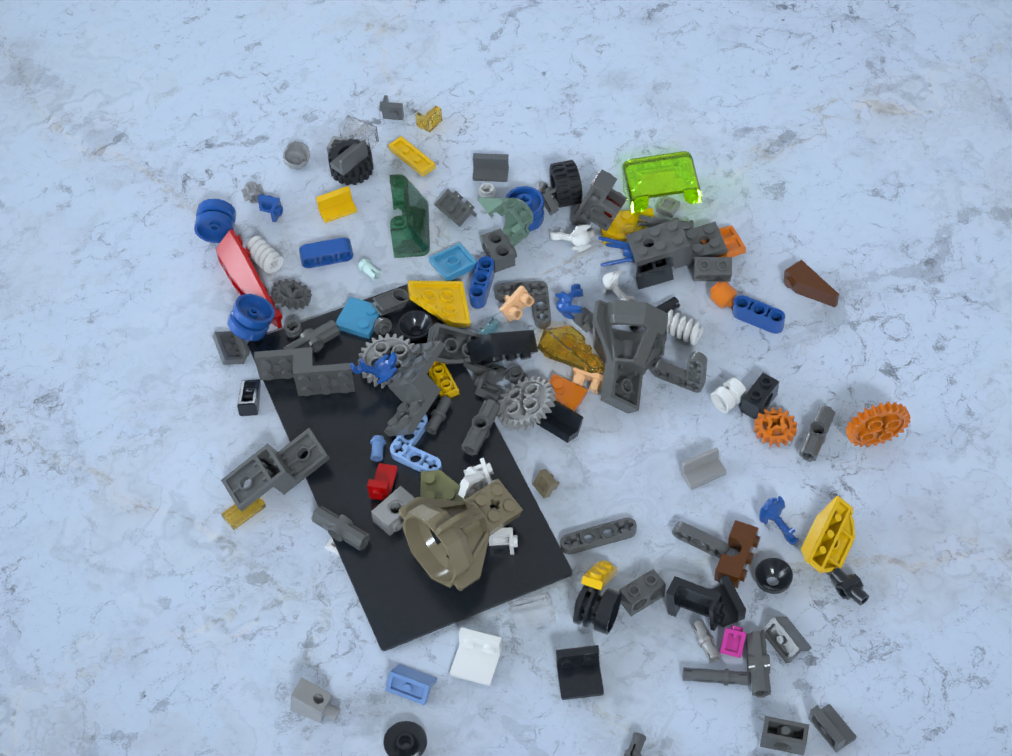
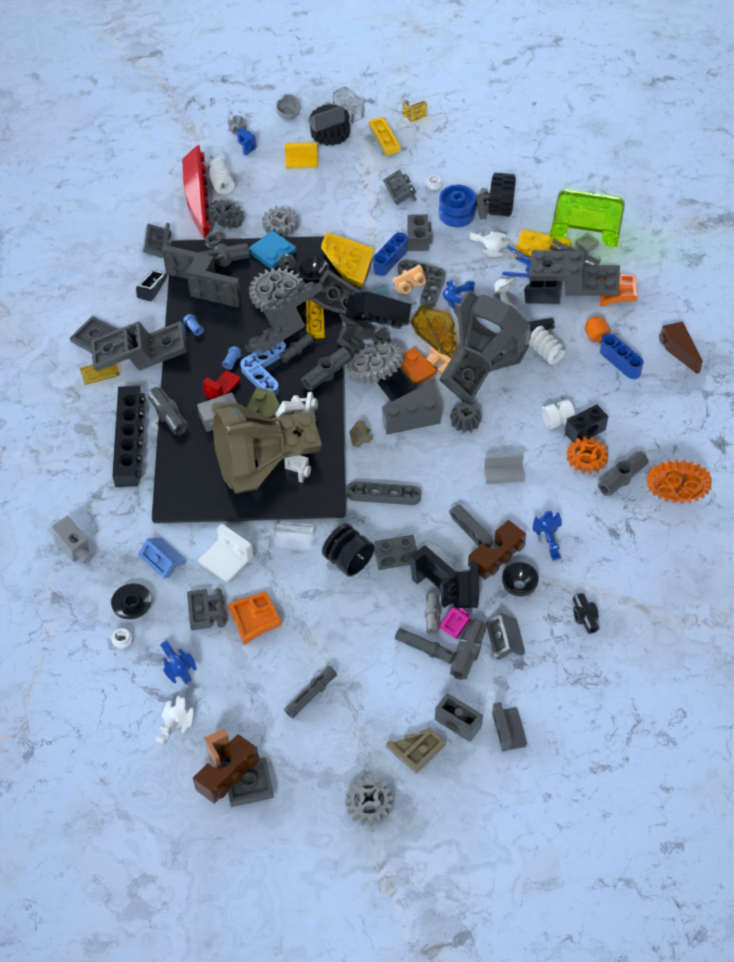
camera: 20 degrees right, 0 degrees up
(213, 470) = (90, 330): none -> dark grey tile
(214, 220) = (193, 132): blue wheel -> none
(251, 317) = (180, 219): blue wheel -> none
(316, 424) = (191, 322): none -> medium blue pin
(326, 252) = (272, 190): blue beam -> none
(327, 612) = (128, 436): none -> black brick
(349, 283) = (280, 220): none -> light grey gear
(369, 269) = (302, 215): light aqua pin -> none
(382, 367) = (264, 295): blue piece -> none
(388, 303) = (299, 244): dark grey piece -> none
(391, 110) = (386, 94): dark grey bracket -> none
(410, 230) = (352, 193): clear green windscreen -> none
(453, 262) = (374, 230): dark azure plate -> none
(477, 723) = (199, 612): none -> dark grey plate
(490, 167) = (447, 164): dark grey panel -> none
(517, 216) = (445, 208): sand green windscreen -> none
(536, 710) = (254, 616): none -> orange plate
(579, 672) = (307, 598): black bracket -> none
(586, 440) = (412, 411): none -> dark grey wedge
(599, 575) = (363, 523): yellow plate -> none
(600, 202) = (521, 216): dark grey piece -> none
(640, 429) = (465, 417): none -> dark grey gear
(684, 378) = (530, 388): dark grey beam -> none
(712, 269) = (597, 304): dark grey brick -> none
(830, 537) = (588, 565): yellow wedge -> none

